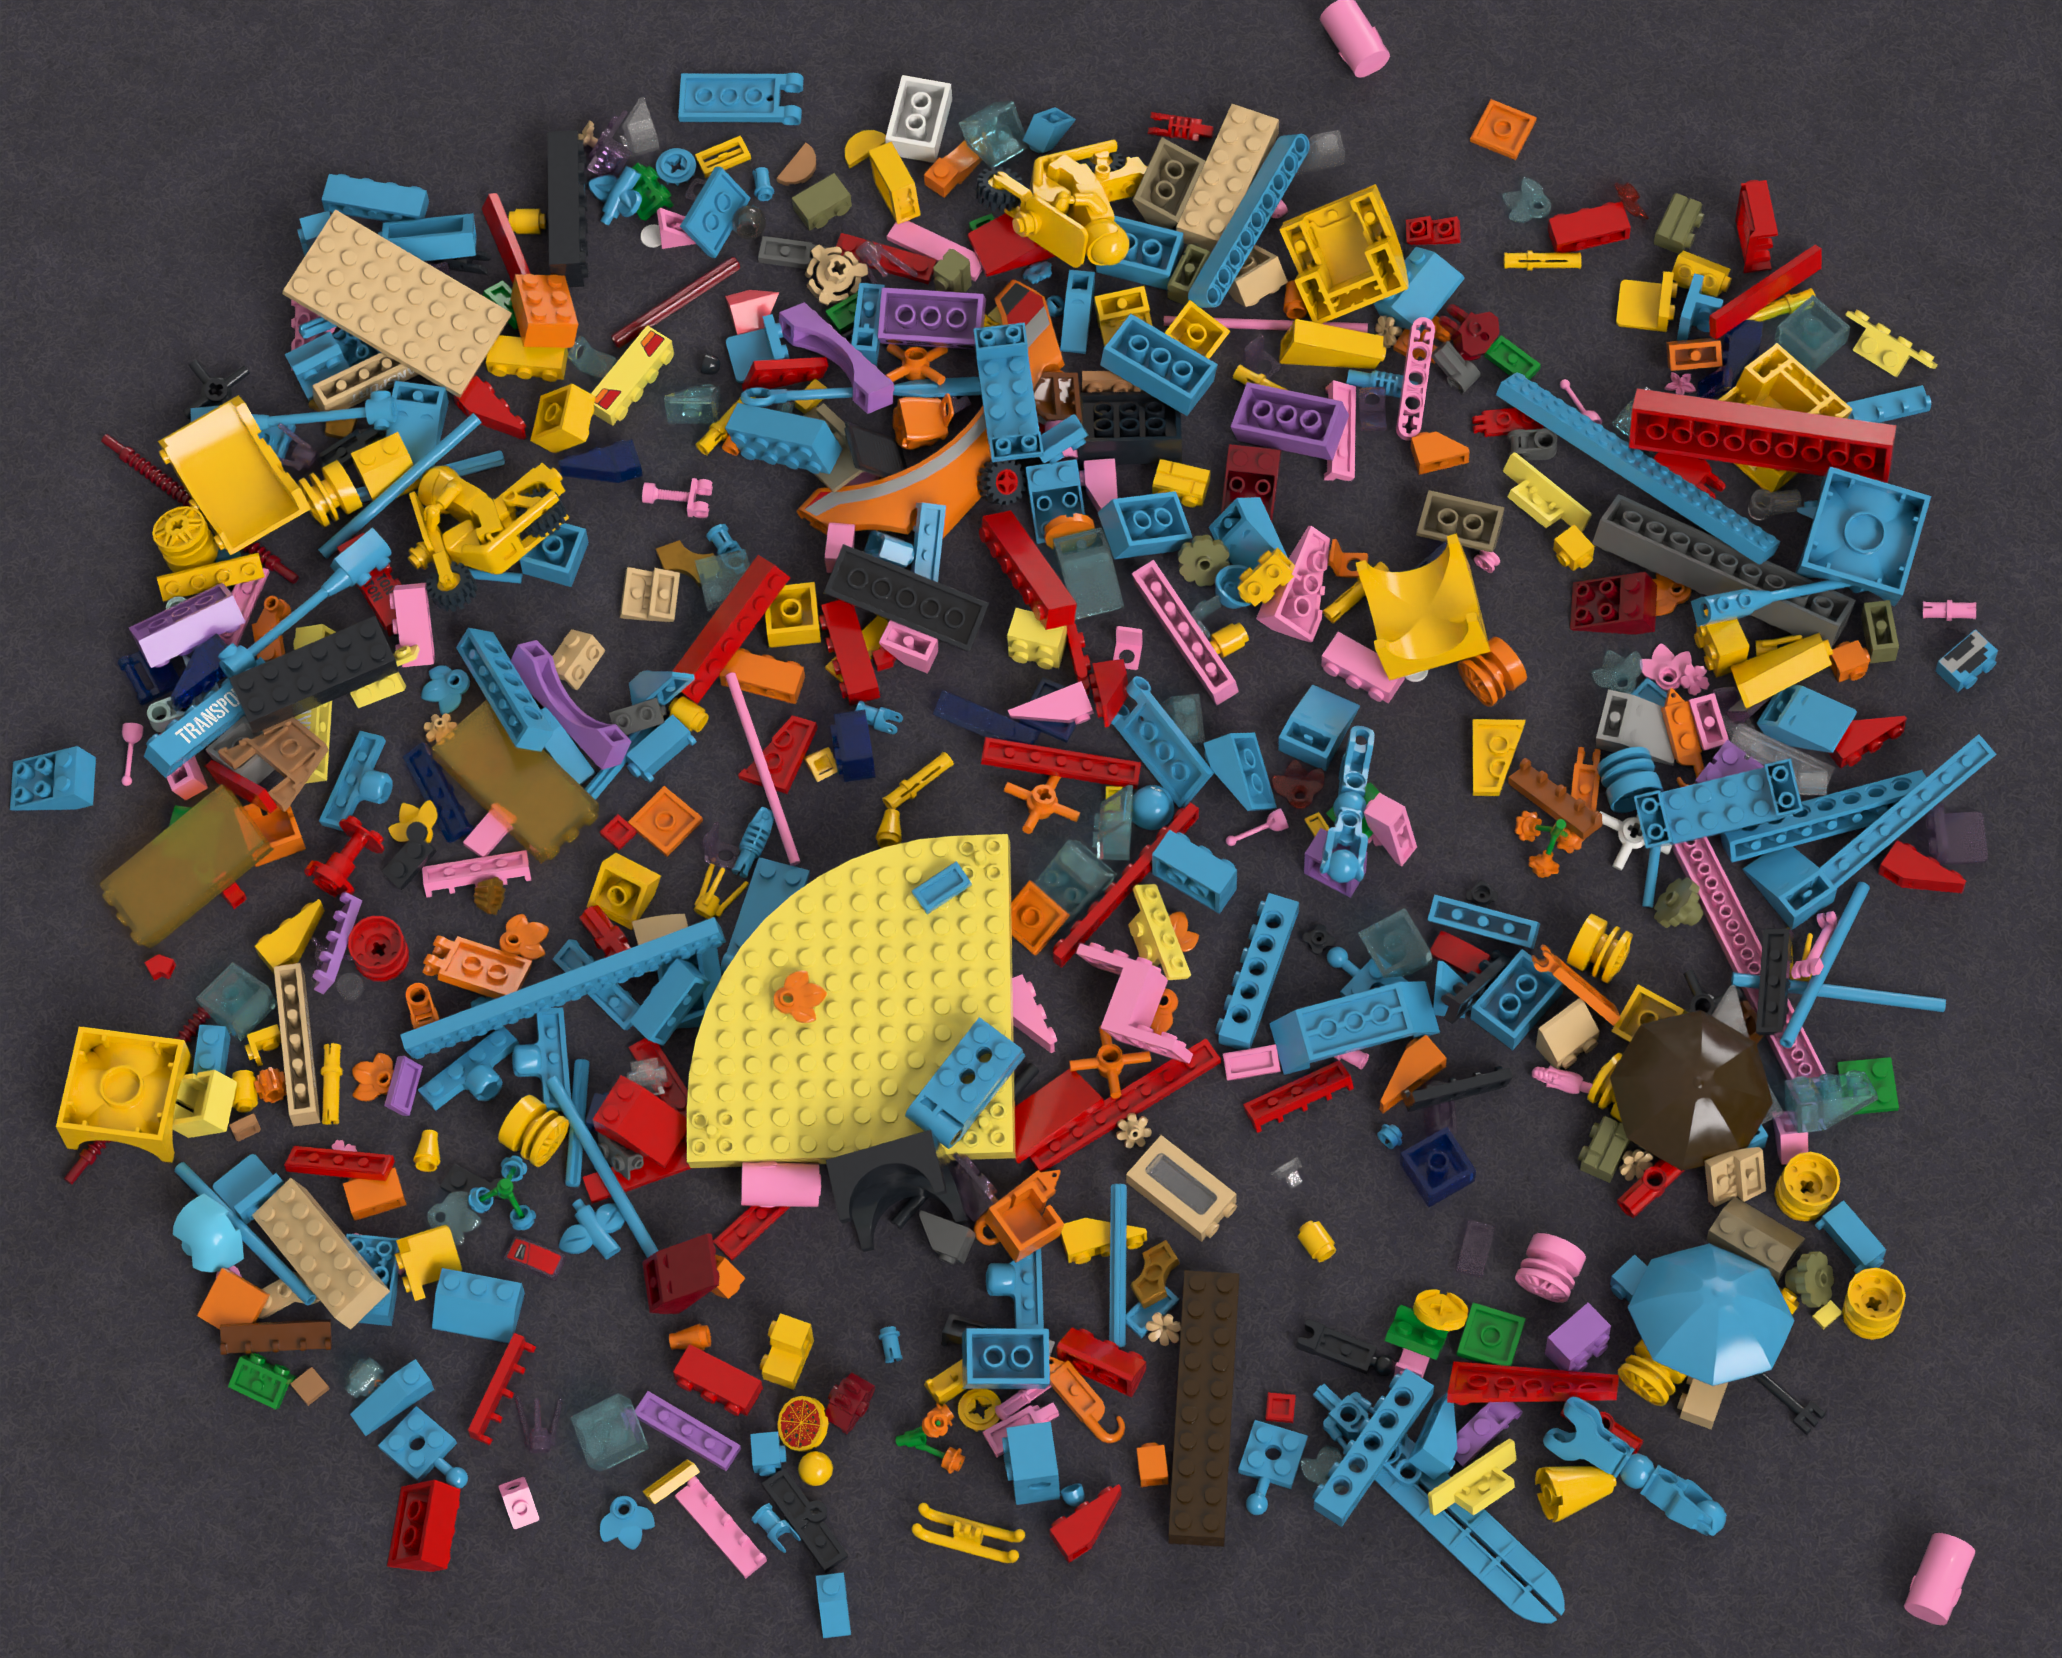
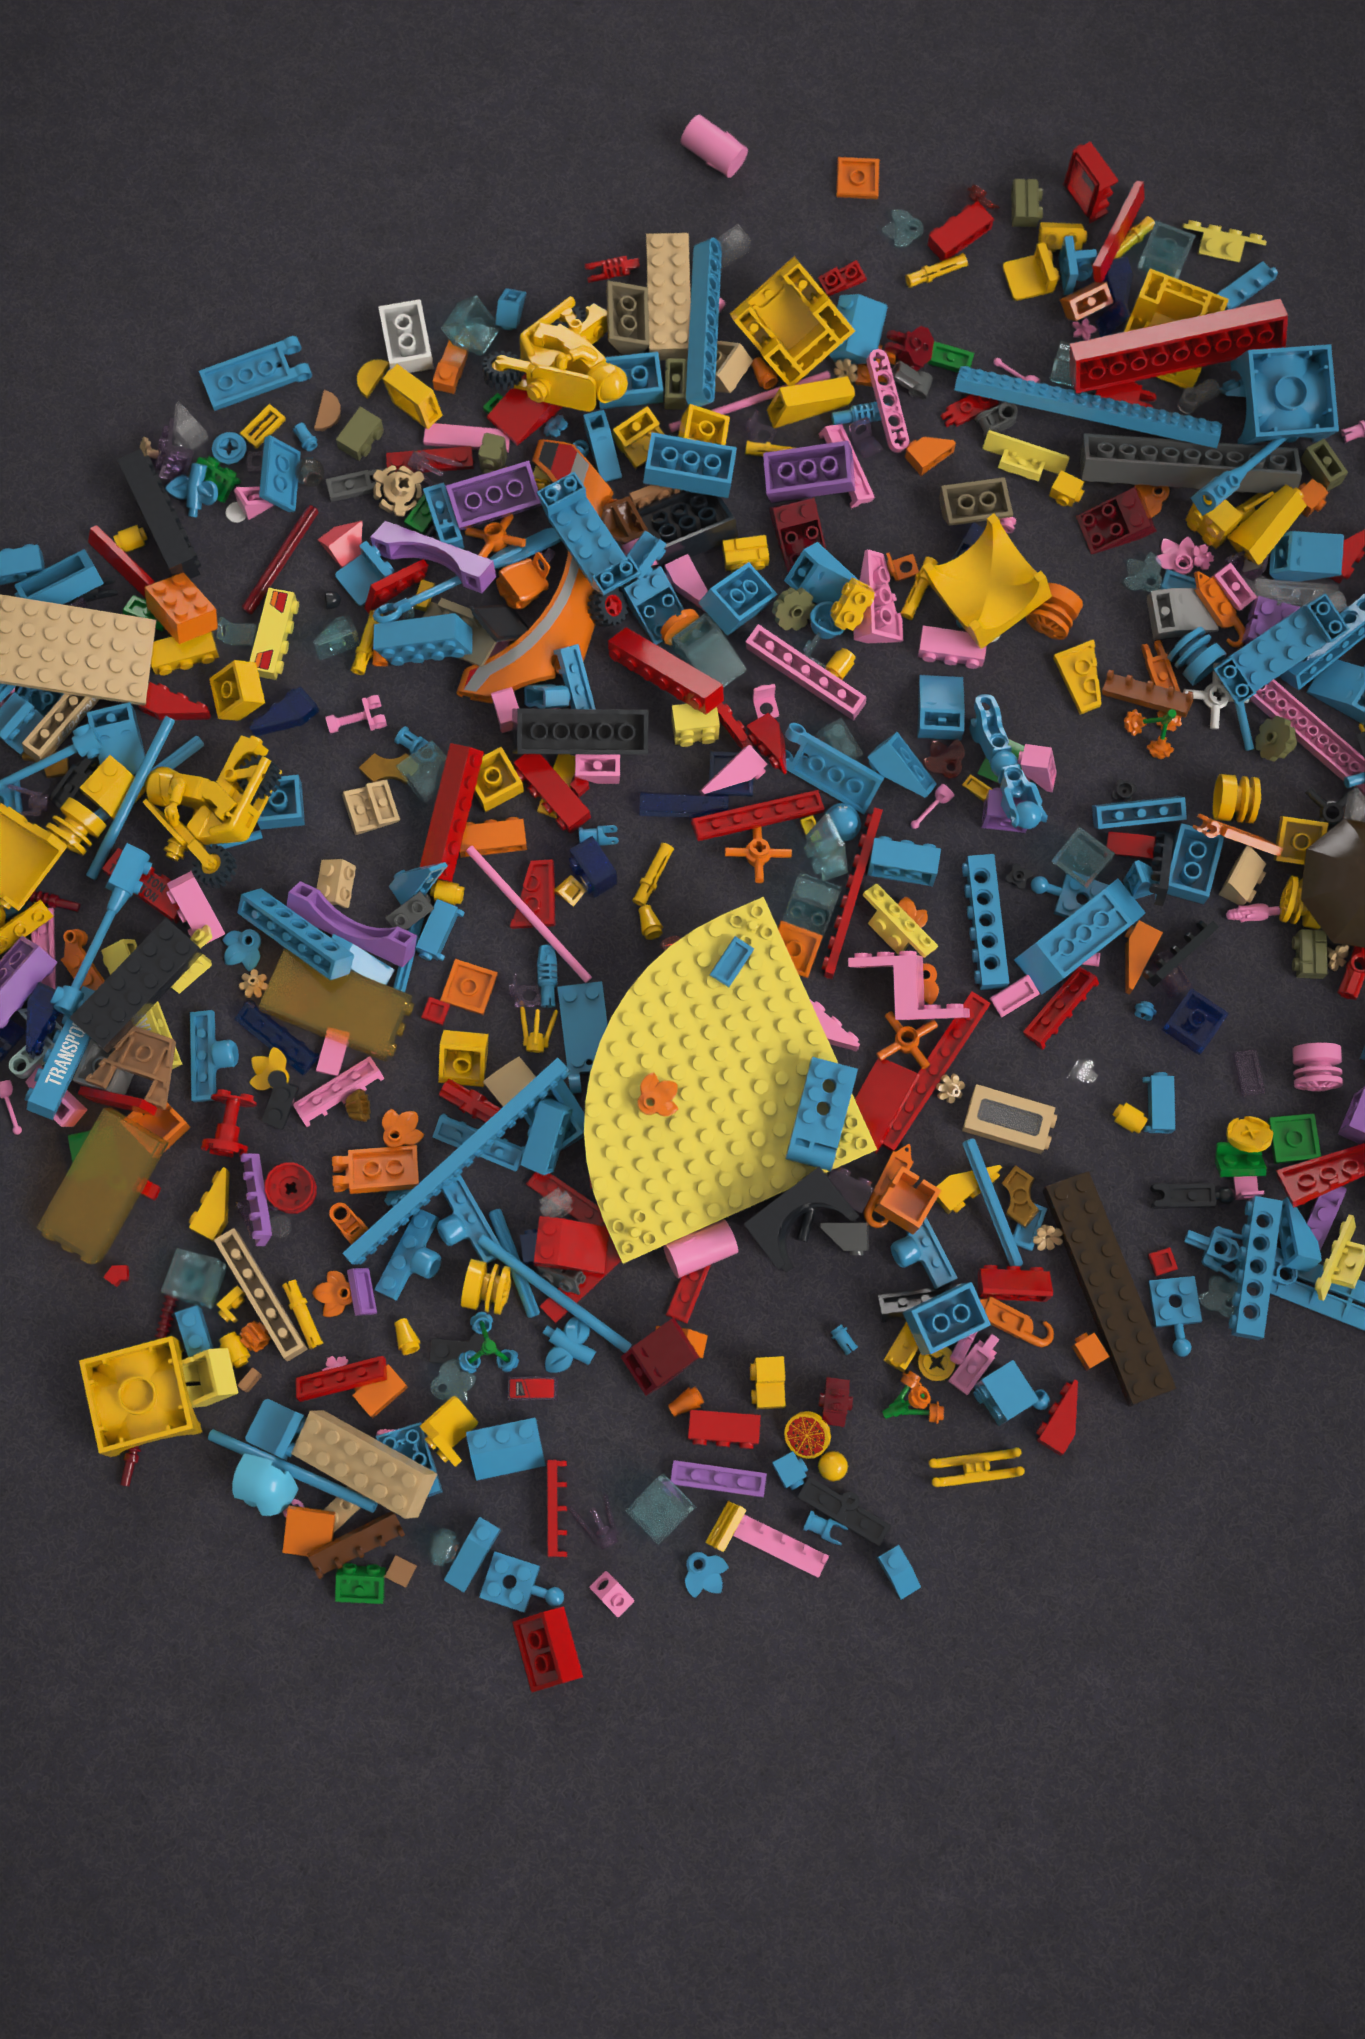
camera: 30 degrees left, 10 degrees up
(1357, 1239) = (1160, 1103): none -> dark azure brick

